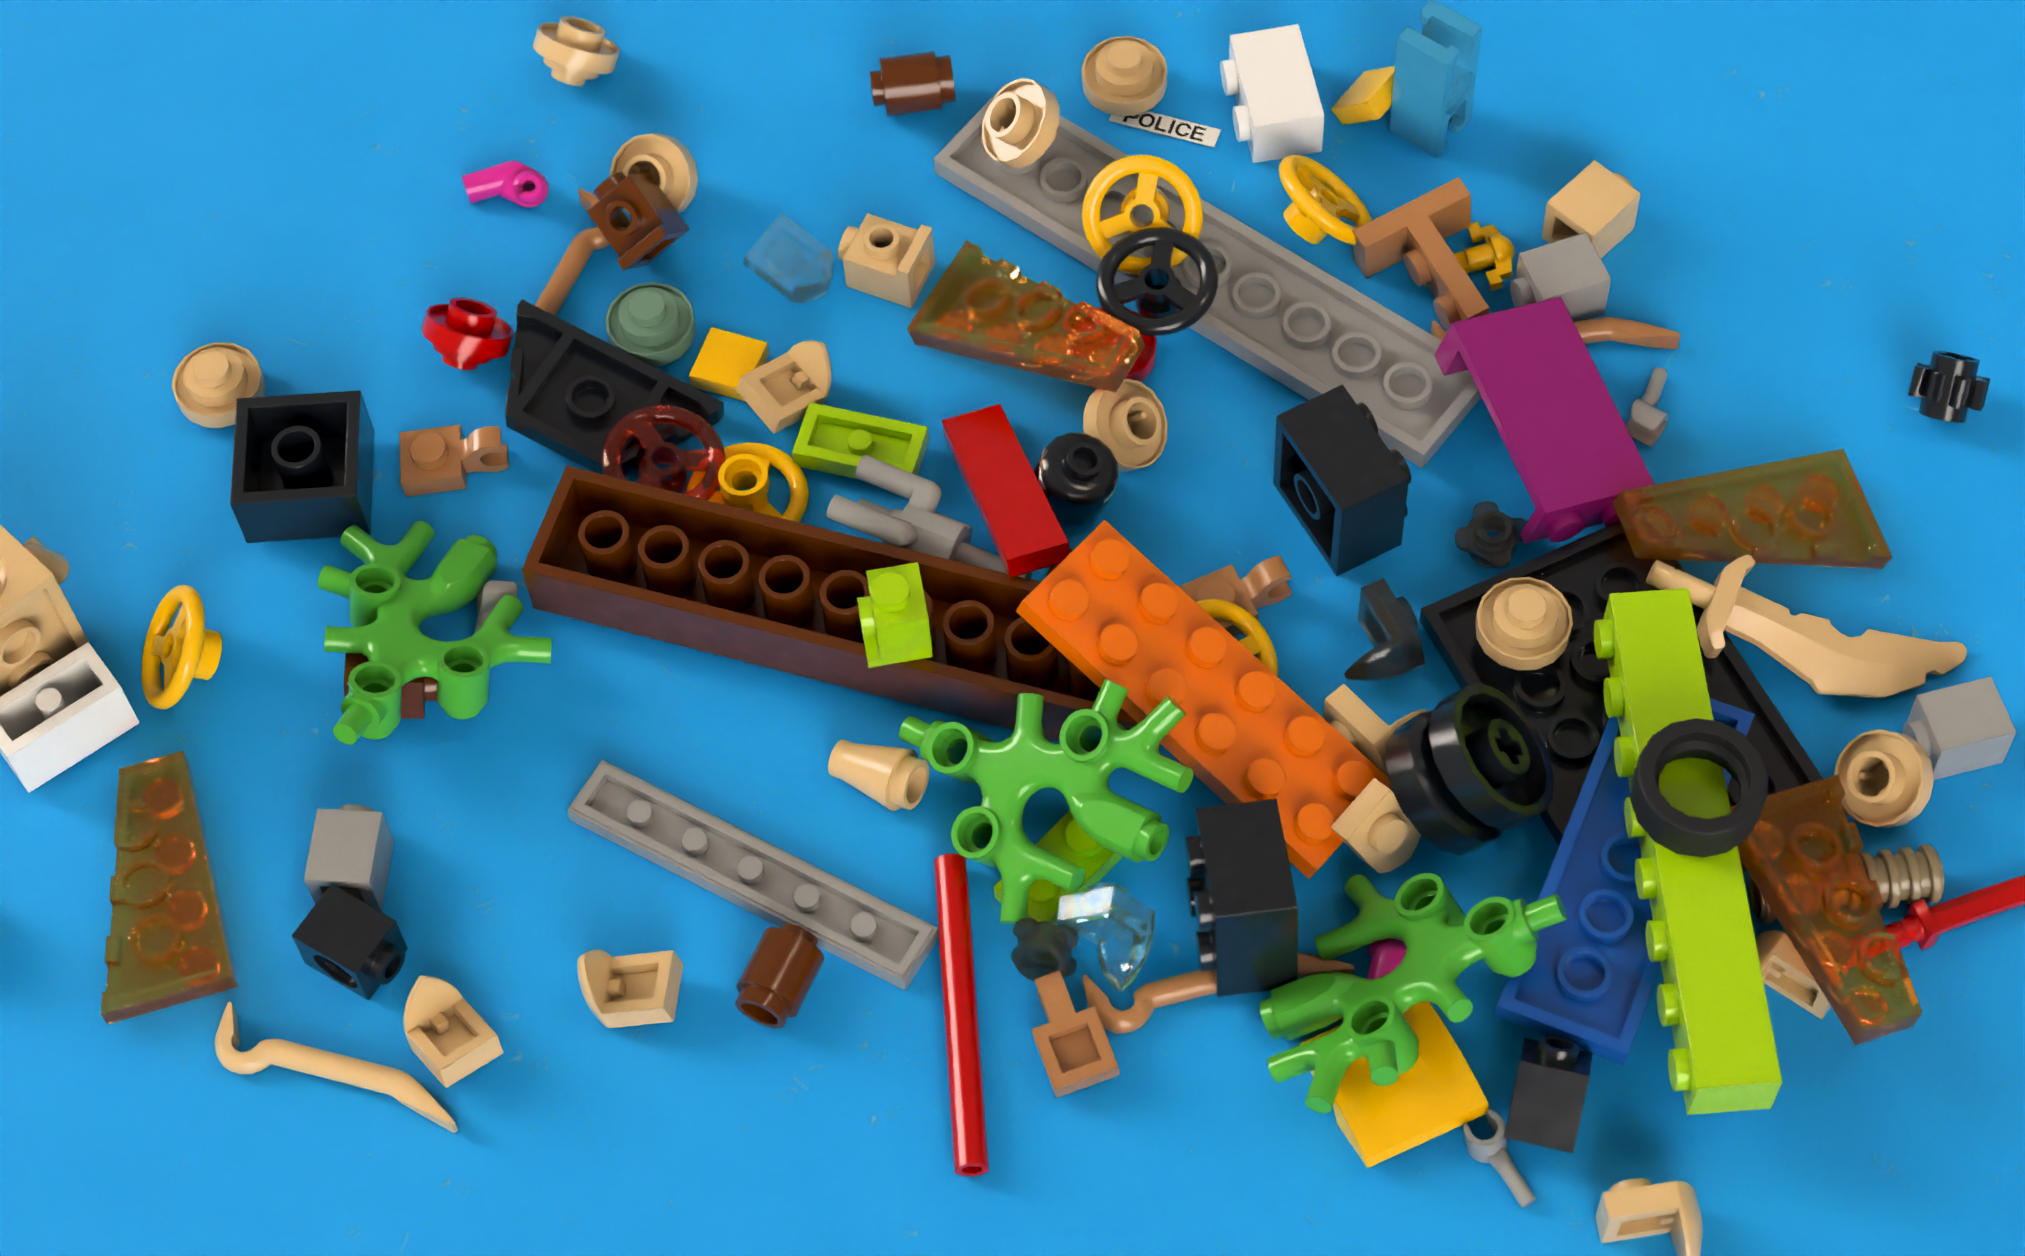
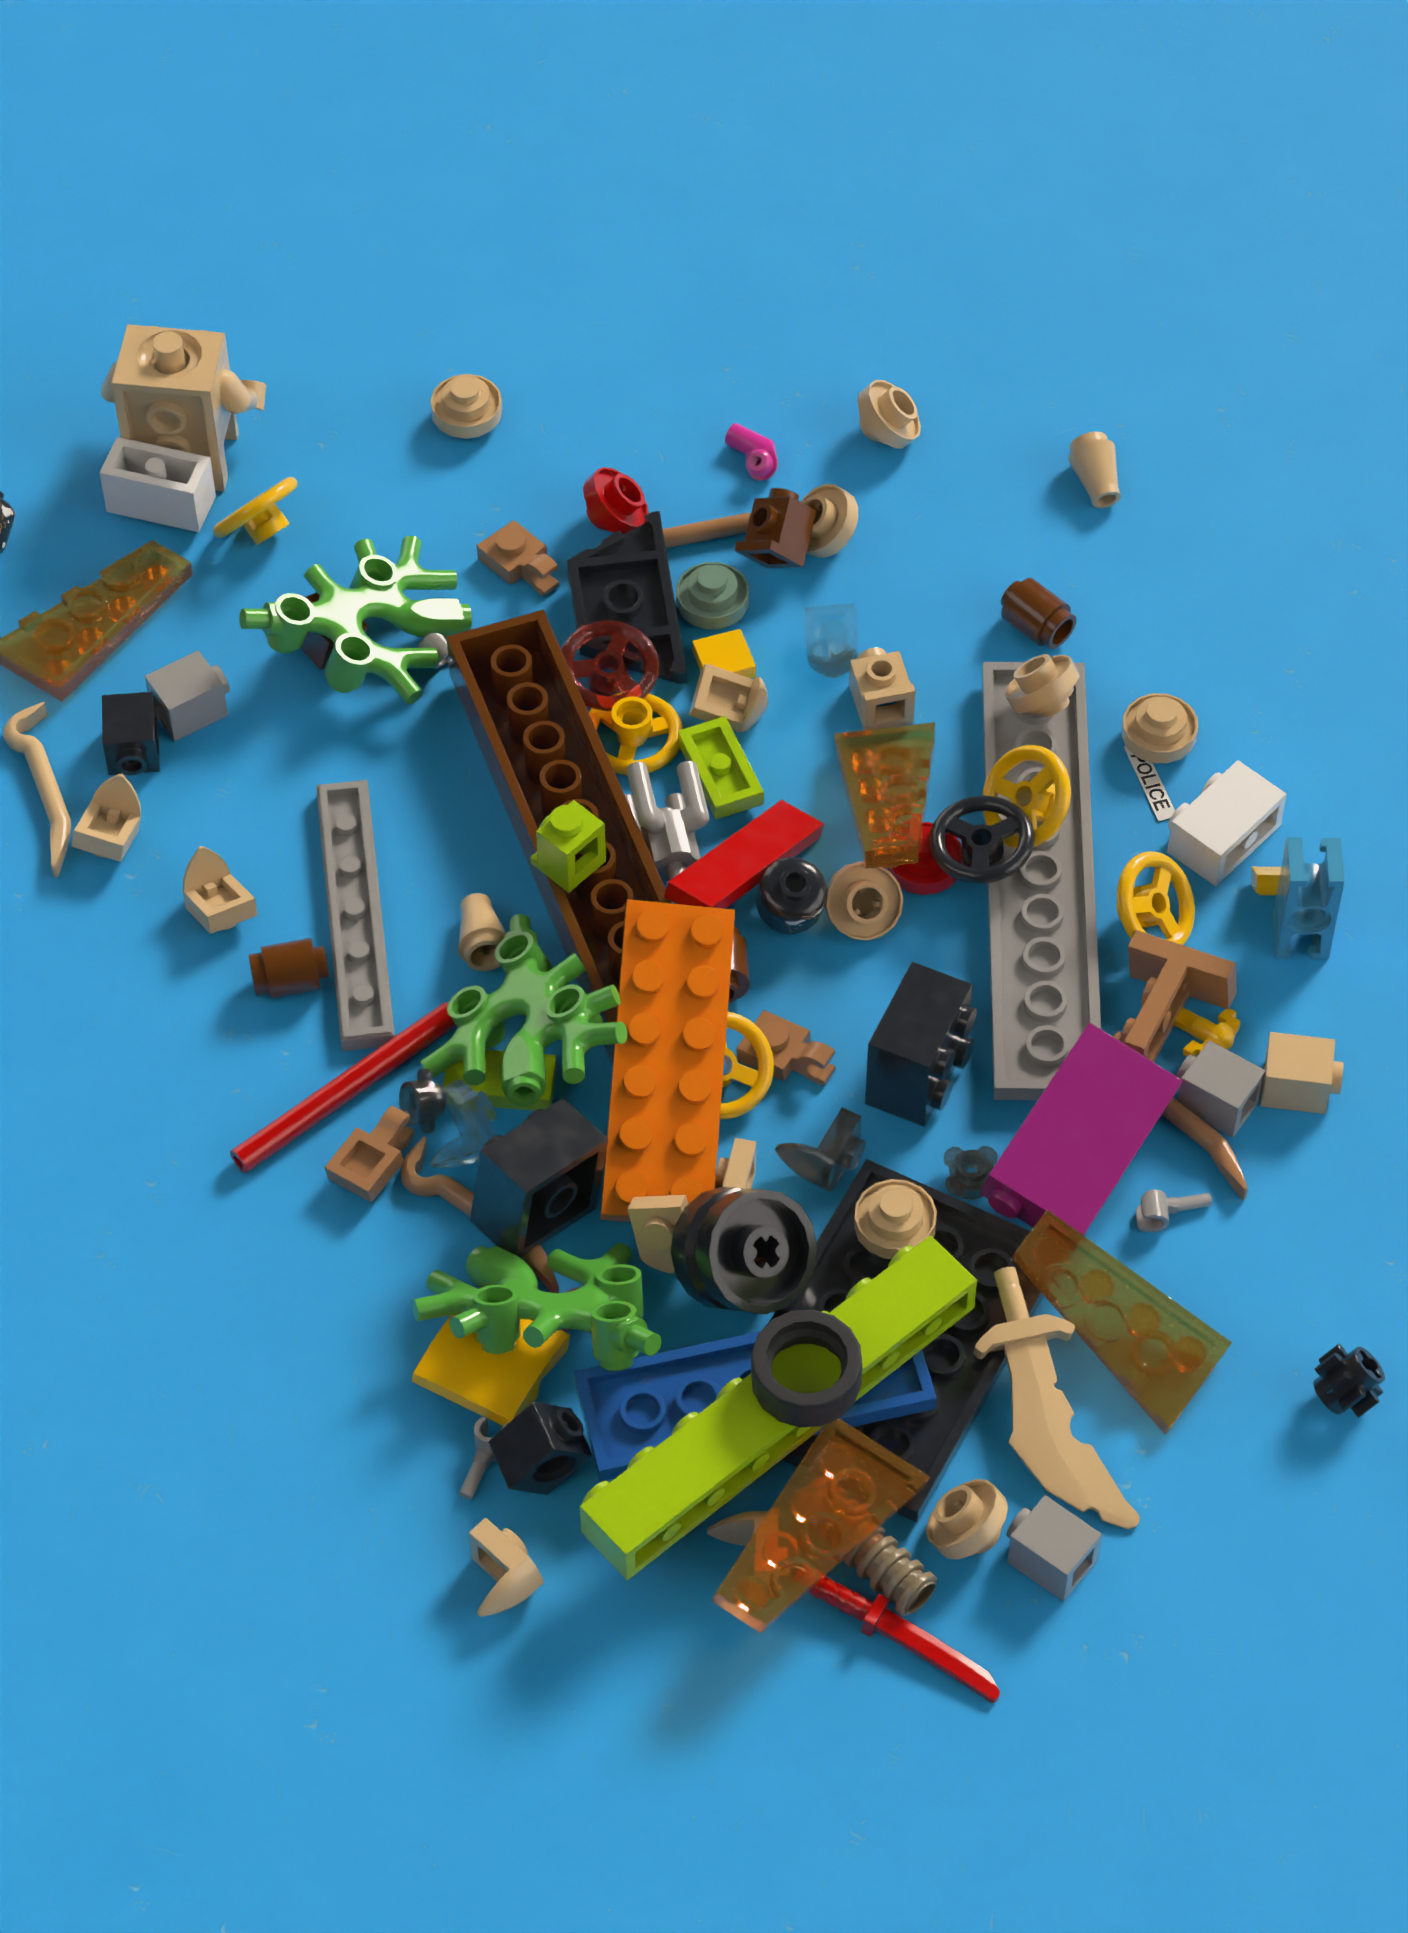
camera: 50 degrees right, 5 degrees down
(302, 466) = (437, 483): black brick -> none

